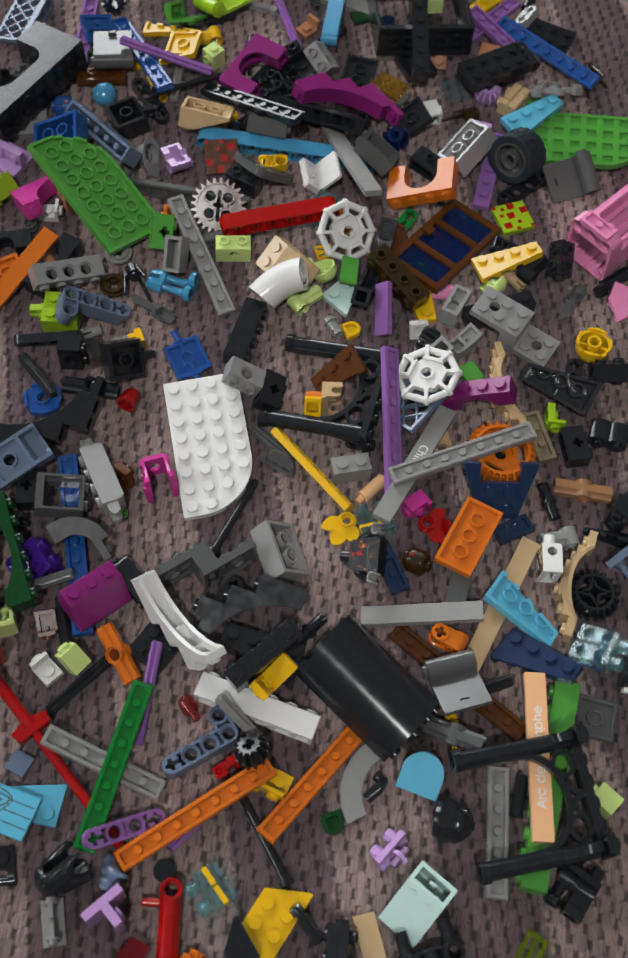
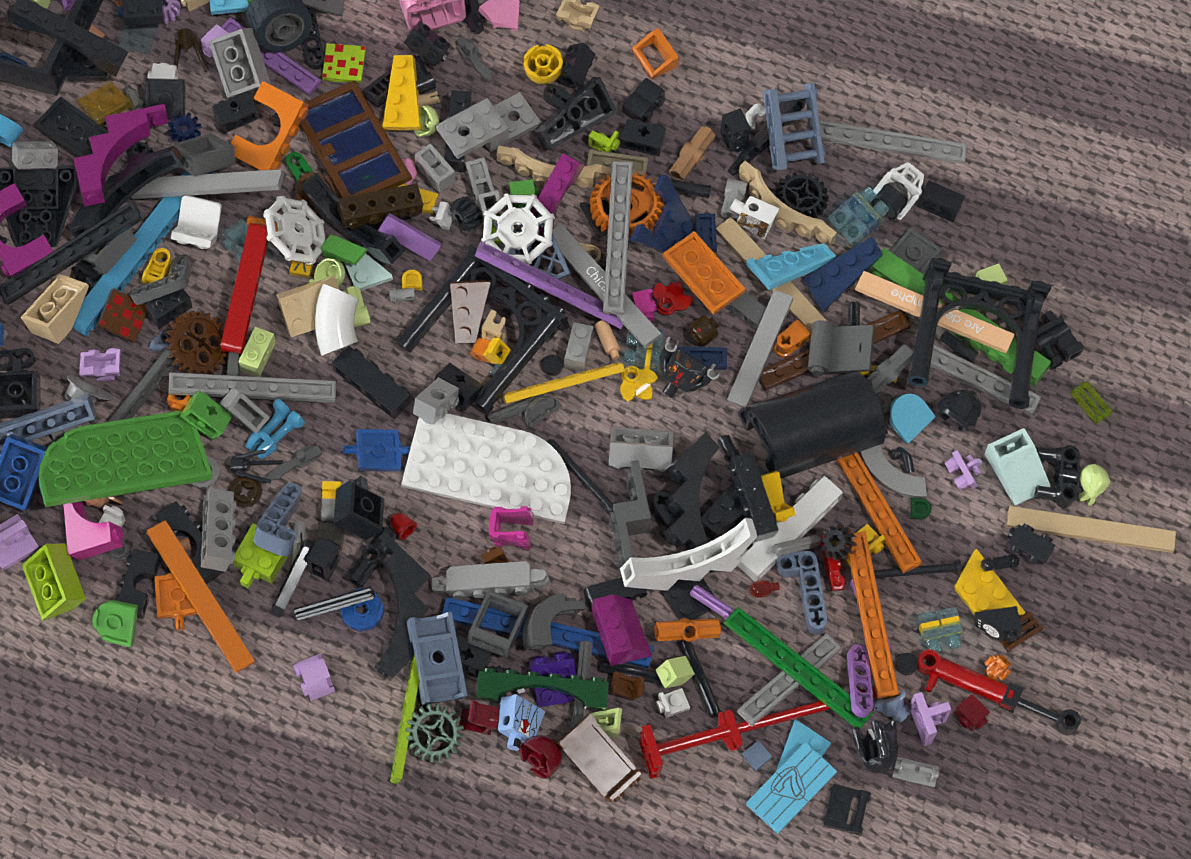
camera: 65 degrees left, 5 degrees up
(324, 456) = (552, 365): none -> black tile

